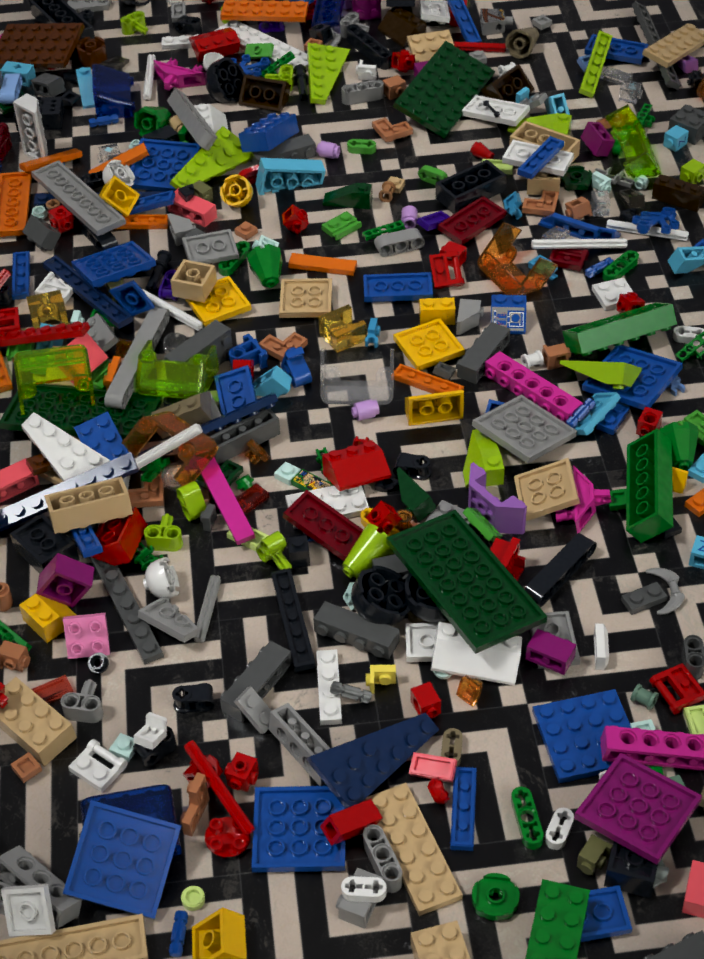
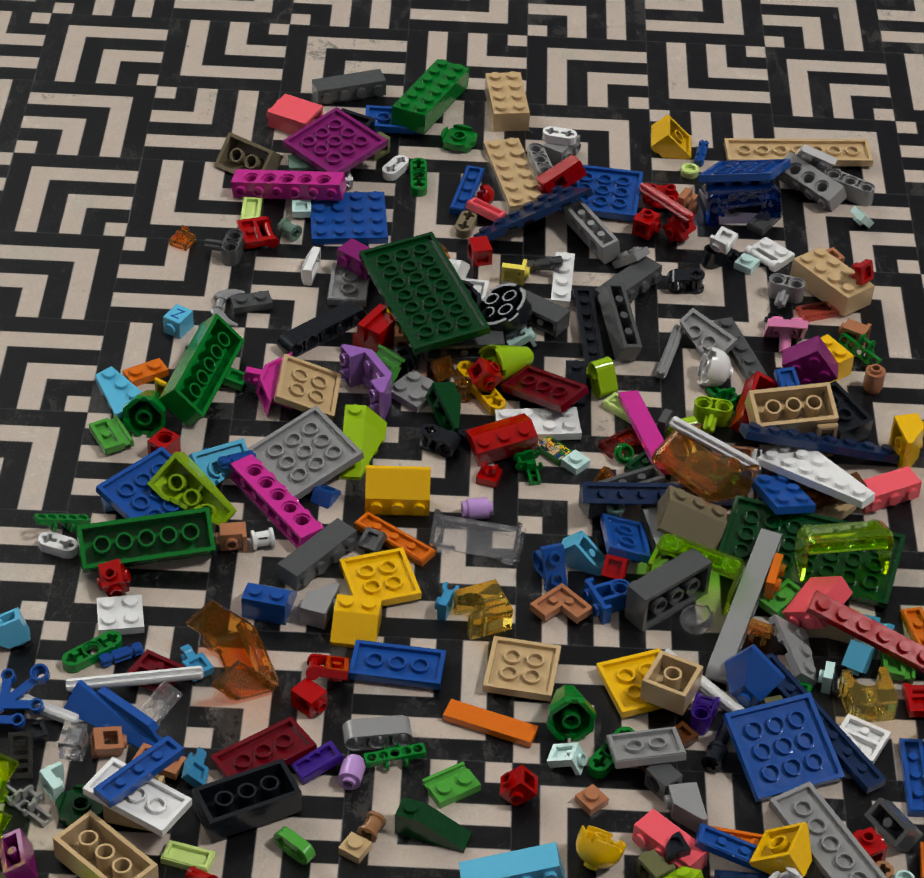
camera: 175 degrees left, 5 degrees down
(259, 606) = (620, 322): none -> dark grey brick

